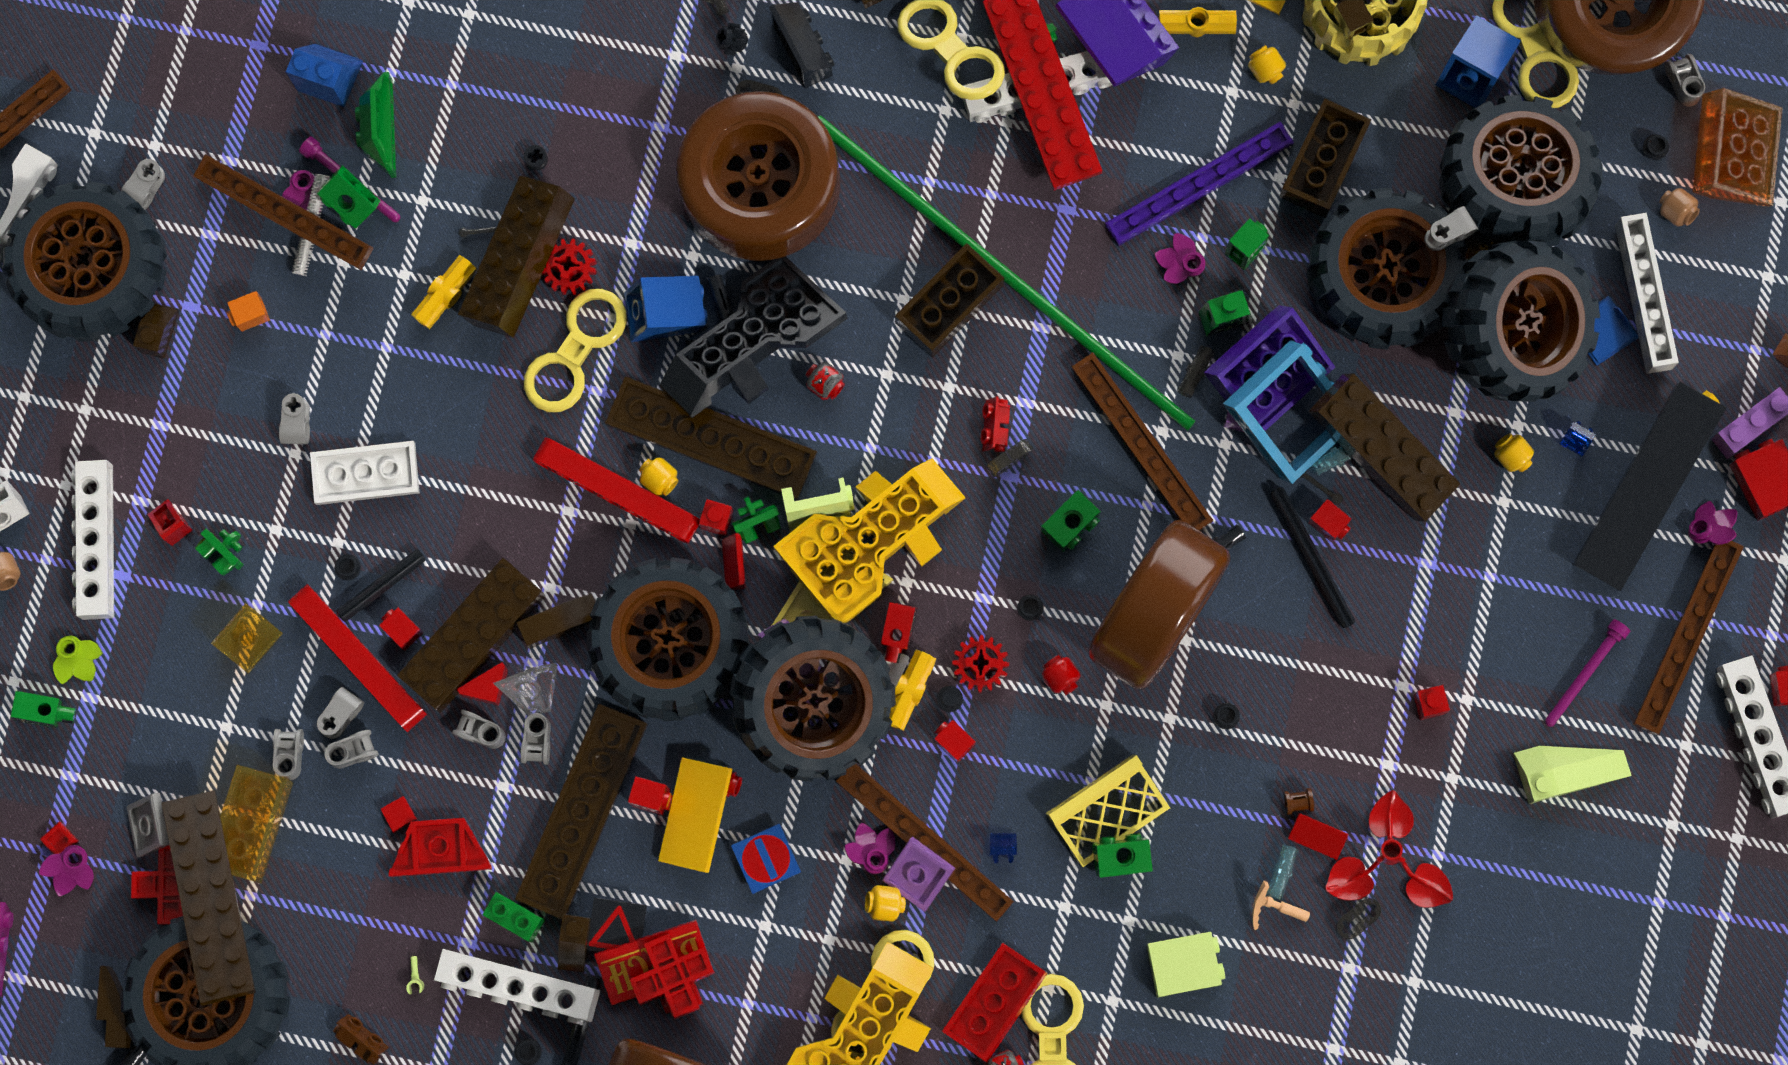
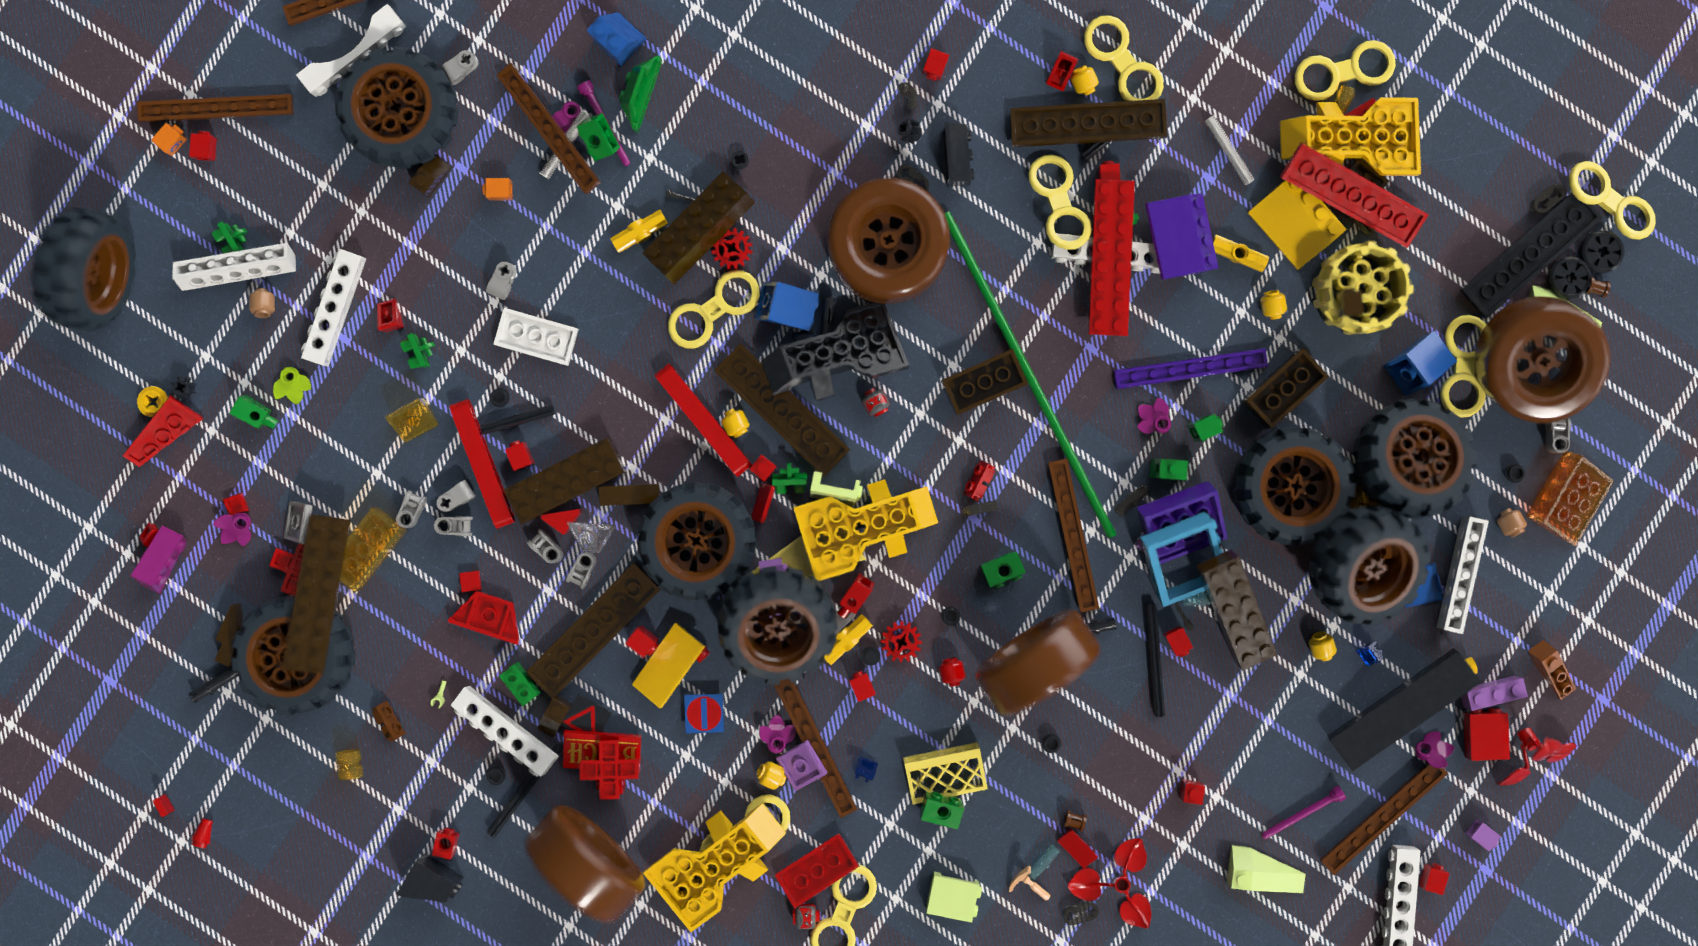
camera: 10 degrees right, 10 degrees up
(1453, 228) = (1351, 483): light grey piece -> none

